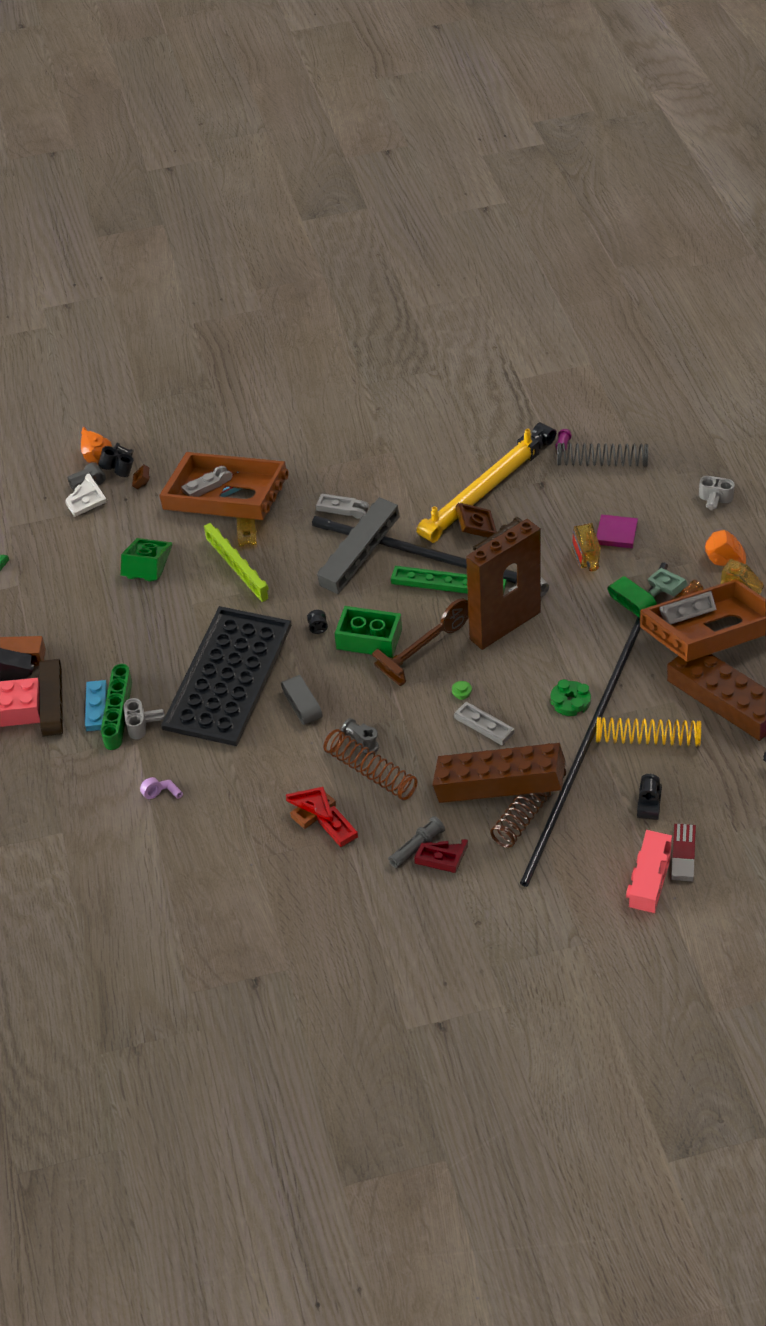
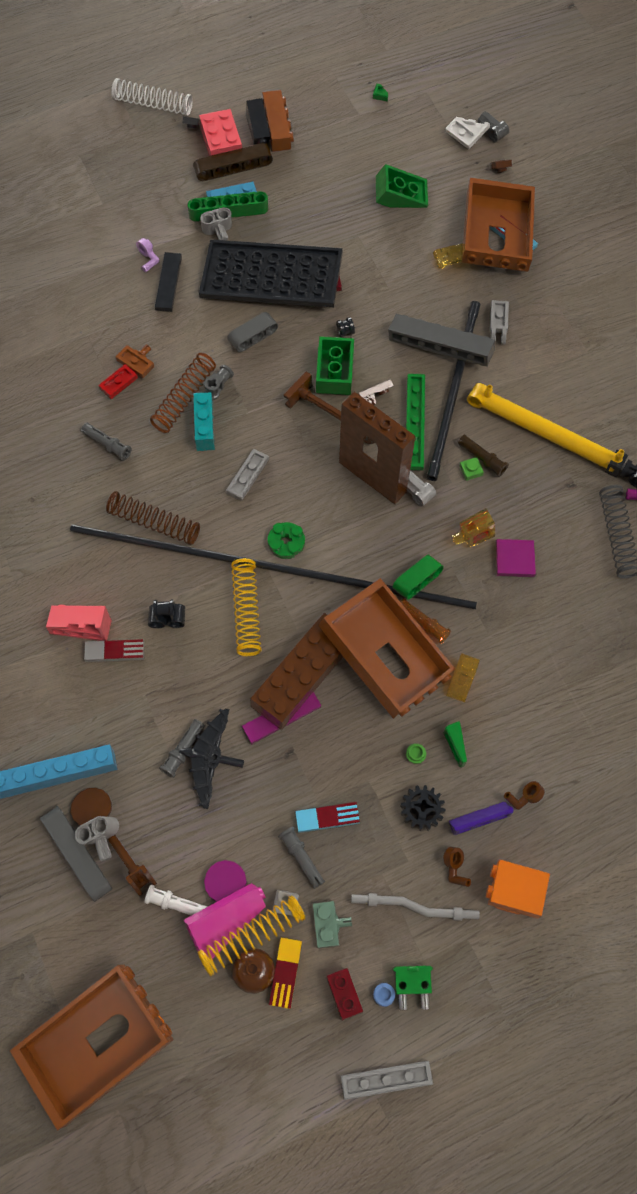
camera: 75 degrees right, 20 degrees up
(92, 445) = (529, 121): orange helmet -> none
(117, 458) = (521, 142): black piece -> none
(205, 772) = (168, 282): none -> black tile
(207, 482) = (502, 212): light grey hinge -> none
(238, 564) = (411, 251): lime plate -> none
(312, 801) = (135, 358): red tile -> none
(403, 605) = (380, 388): none -> hinge
(425, 746) = (204, 421): none -> teal arch
(441, 855) = (94, 462): dark red wing -> none
(461, 690) = (283, 451): bright green plate -> none
(475, 520) = (498, 431): reddish brown tile -> none
(499, 773) = (169, 487): reddish brown brick -> none
(666, 582) = (439, 604): sand green plate -> none
(688, 608) = (400, 624): light grey tile -> none
(716, 490) = (589, 644): light grey beam -> none
(724, 546) = (504, 660): orange helmet -> none

